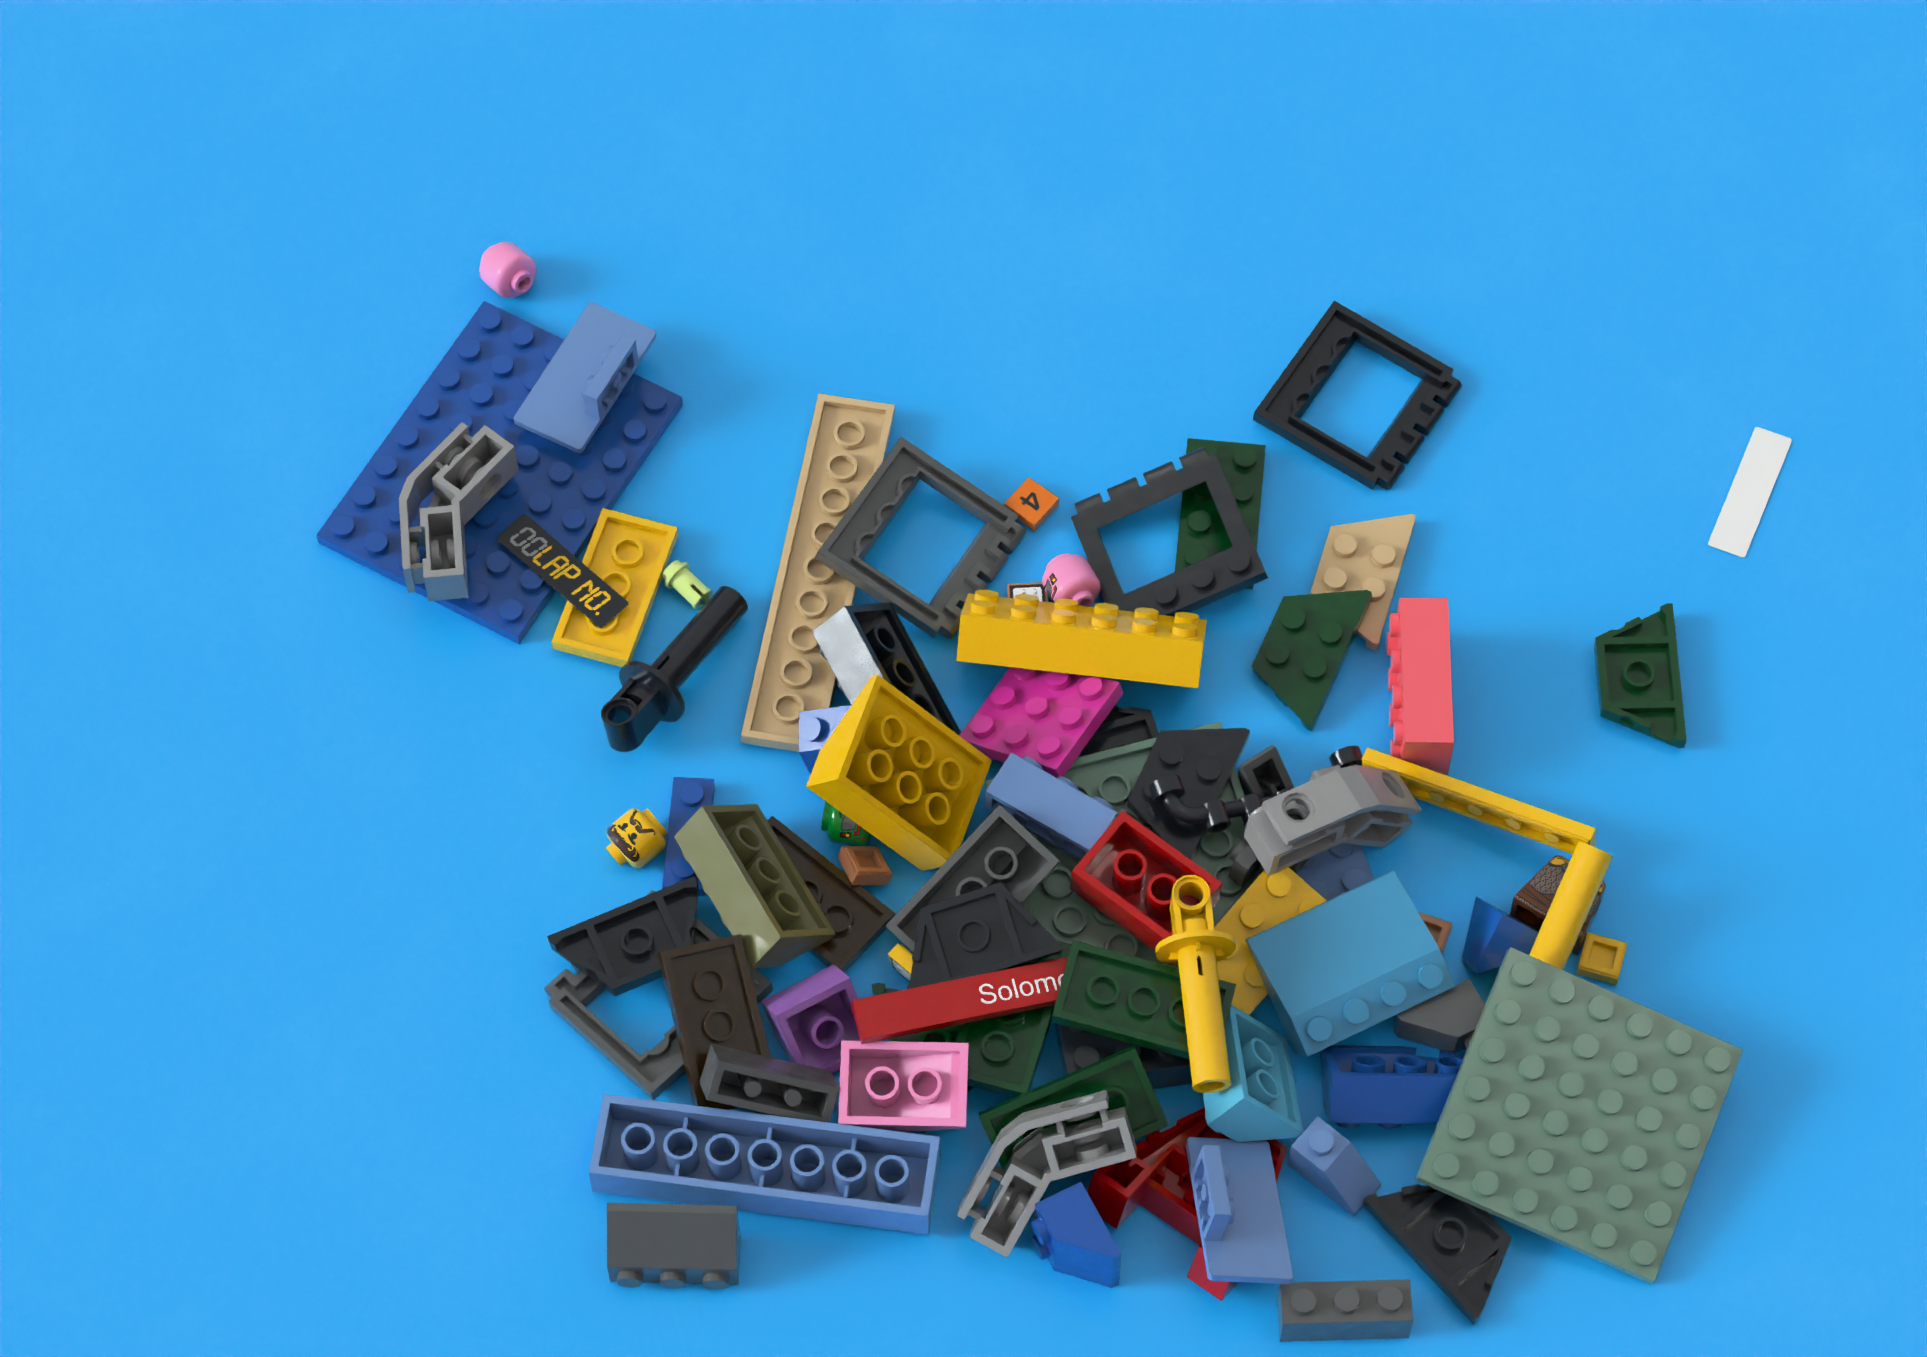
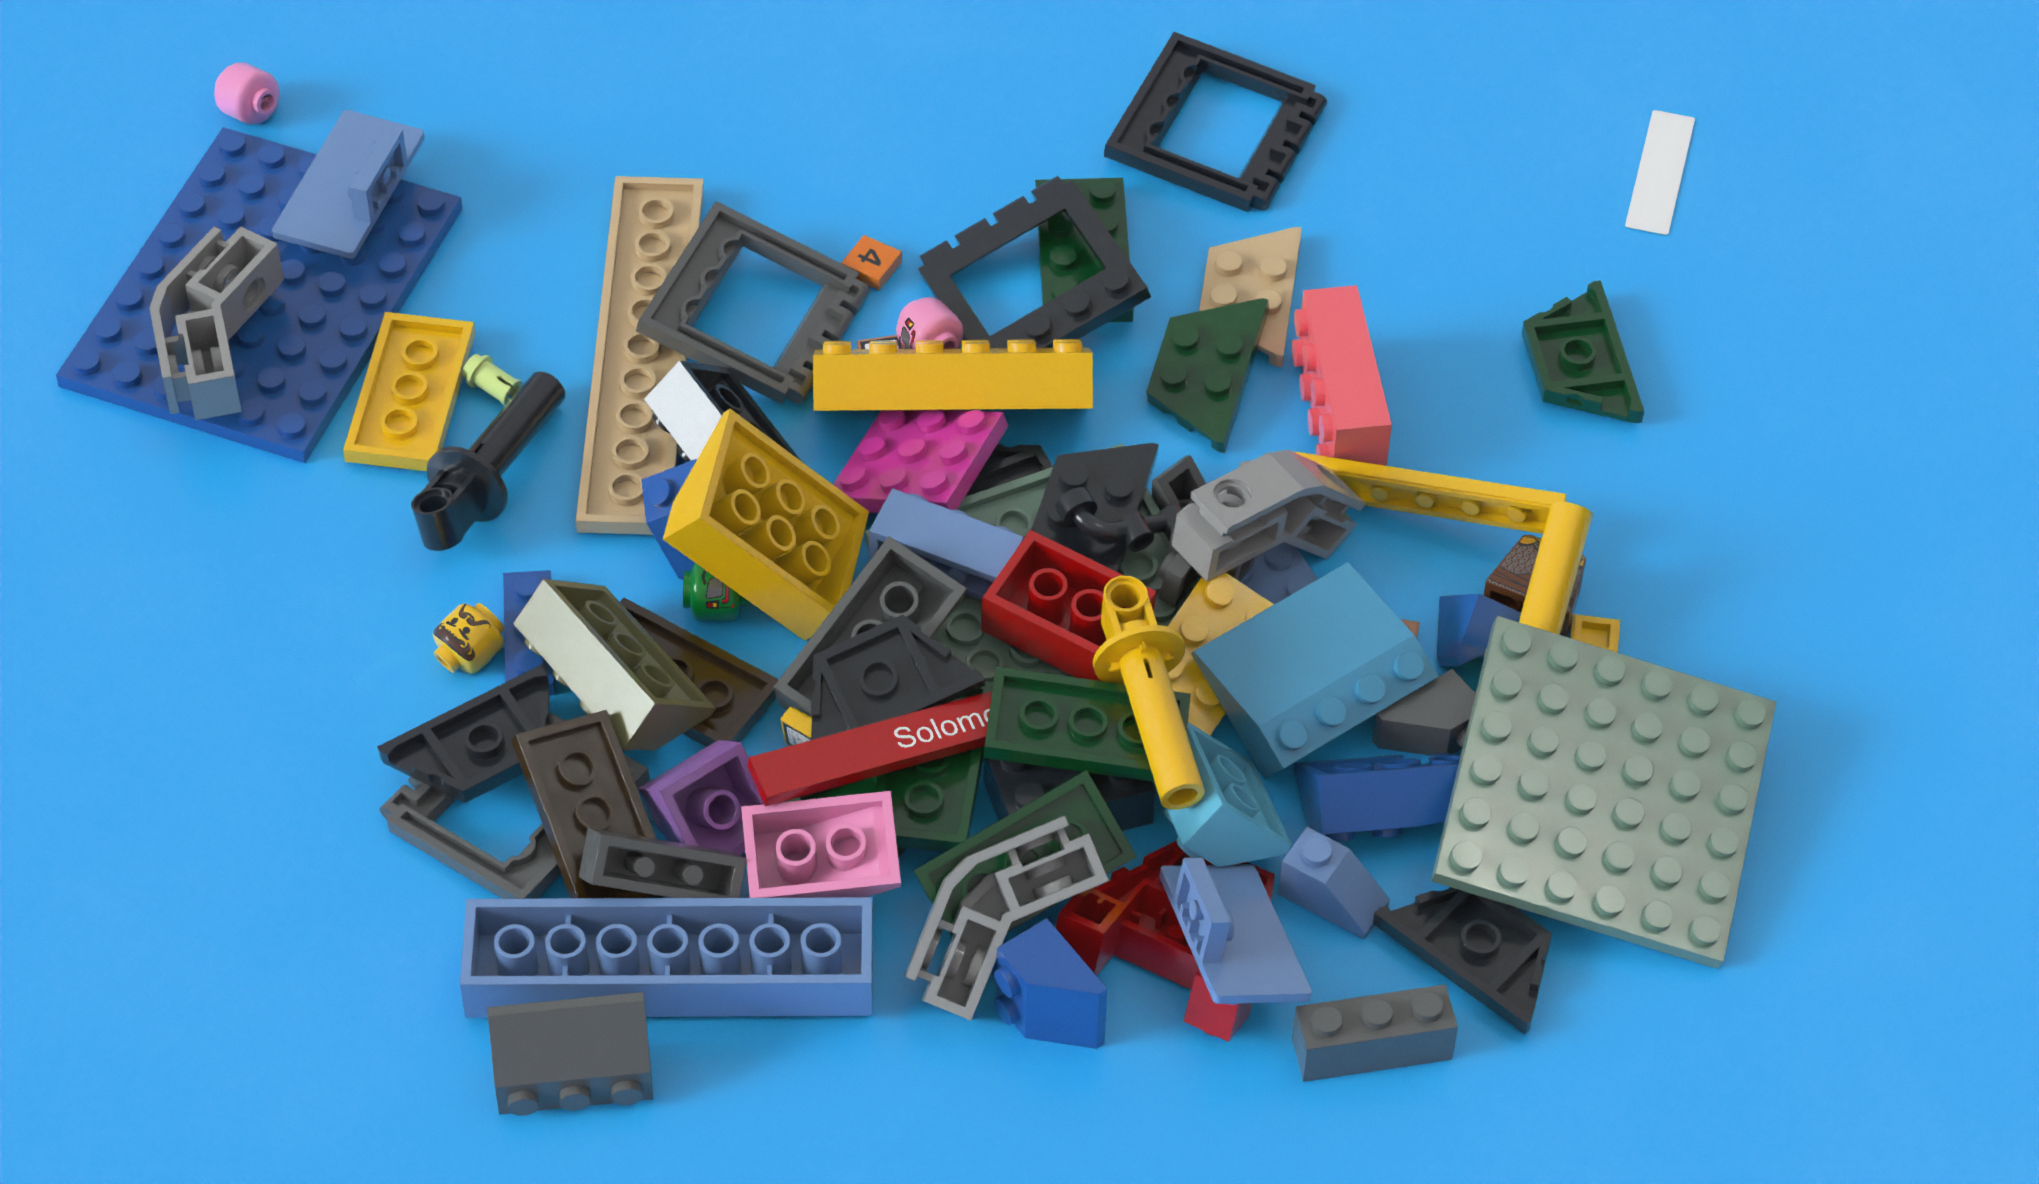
camera: 10 degrees left, 10 degrees down
(562, 570) = (347, 378): black sticker -> none
(864, 865) = (738, 636): nougat tile -> none

